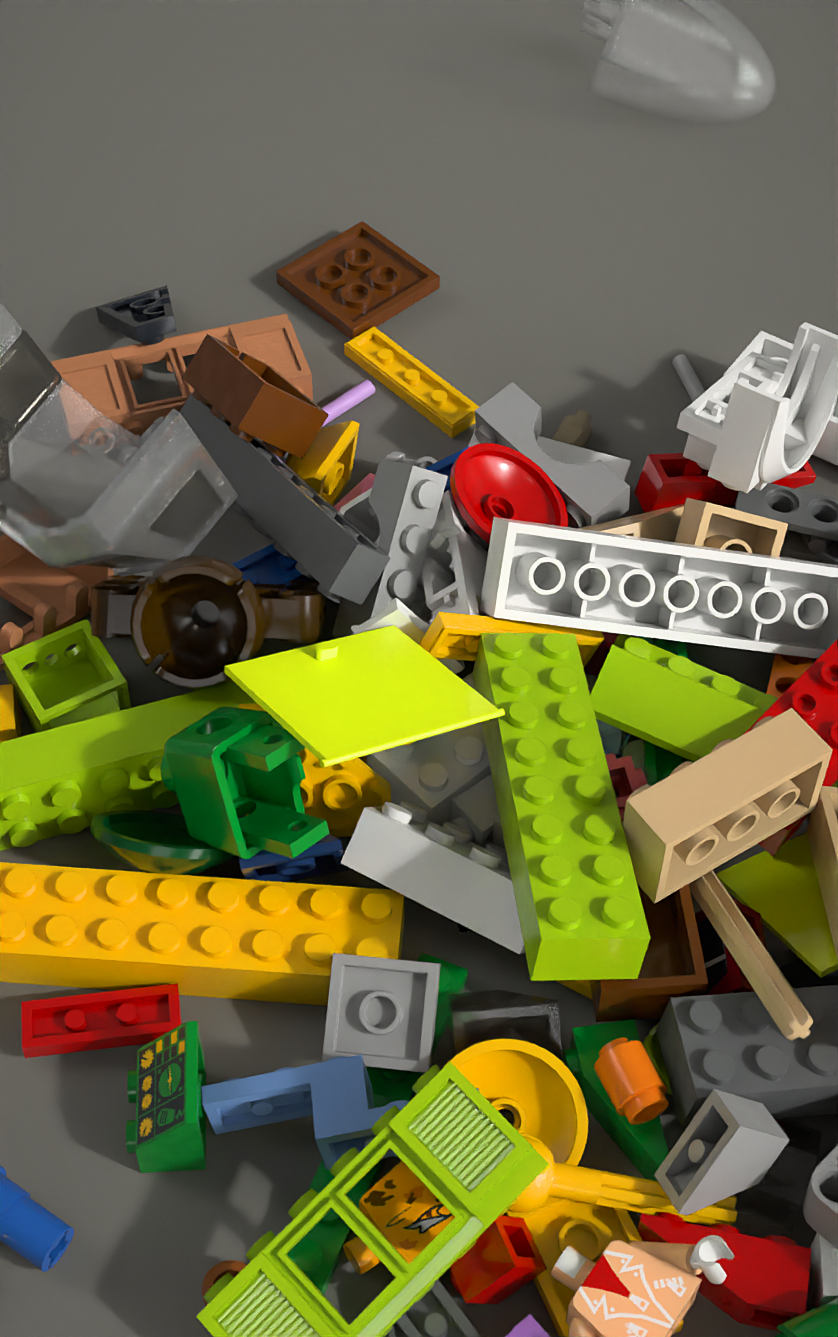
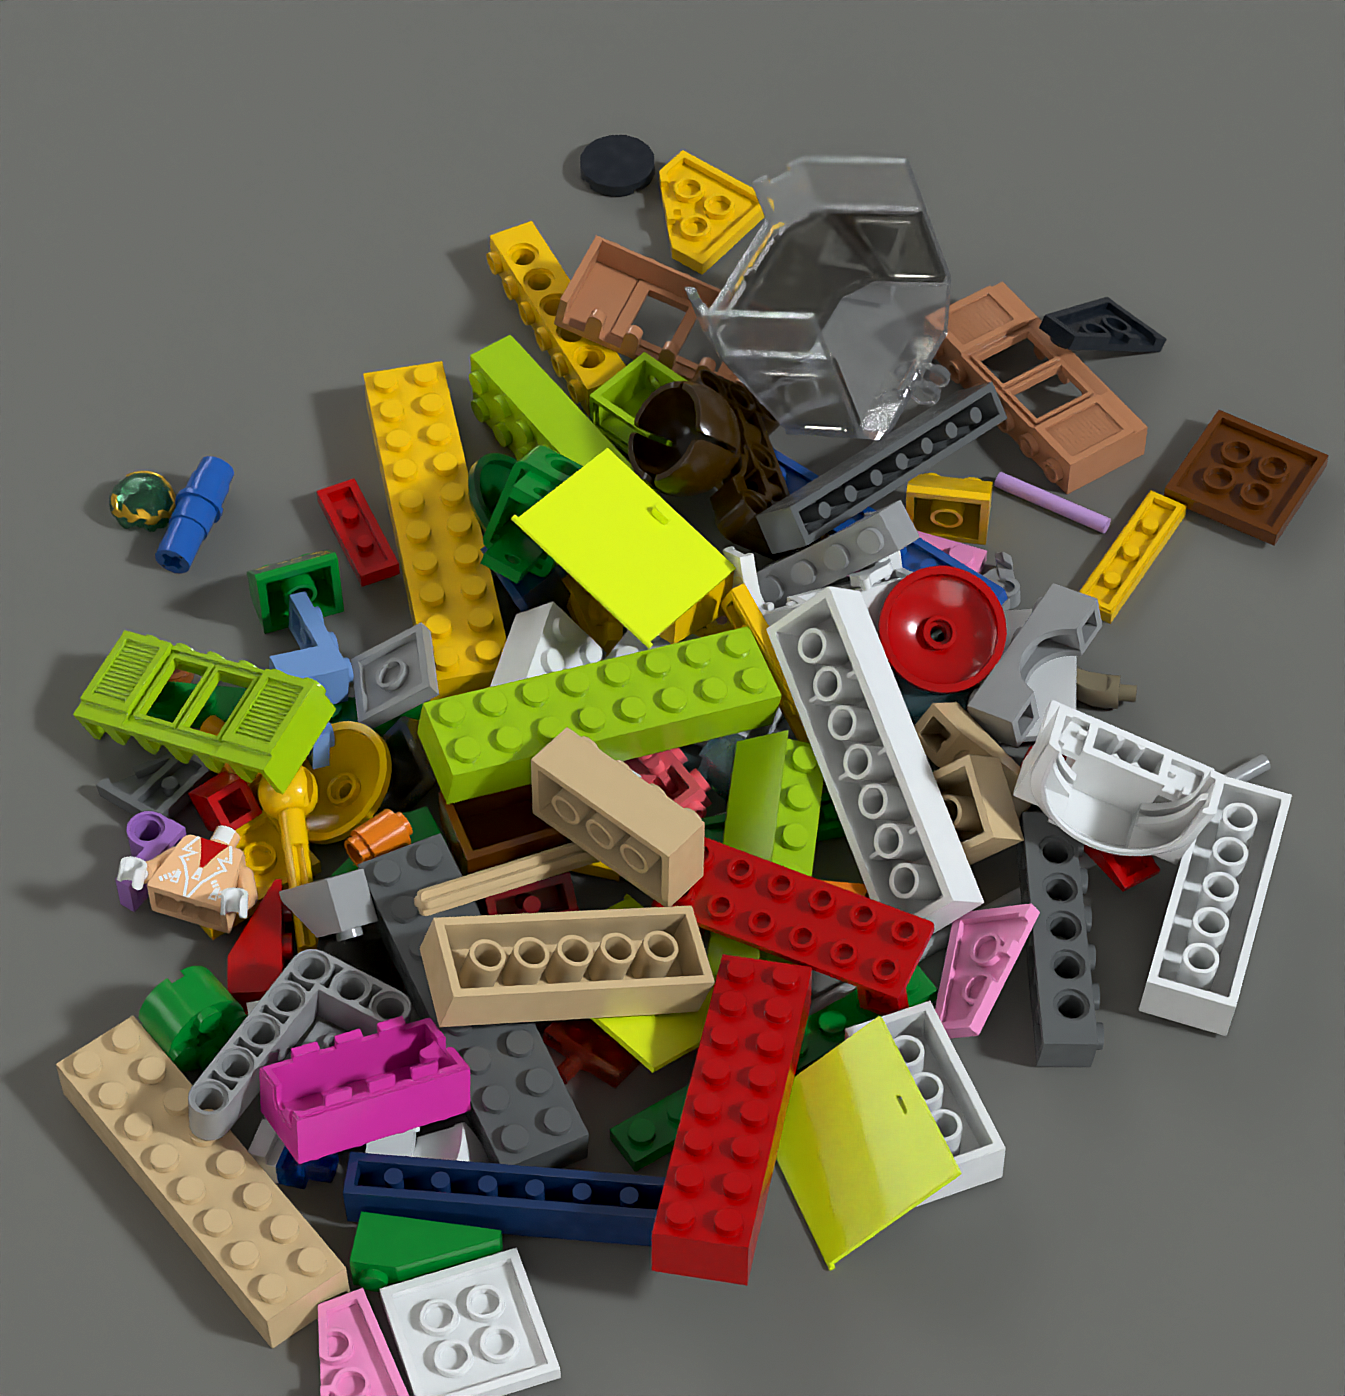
camera: 75 degrees right, 0 degrees up
(253, 398) = (974, 425): reddish brown piece -> none

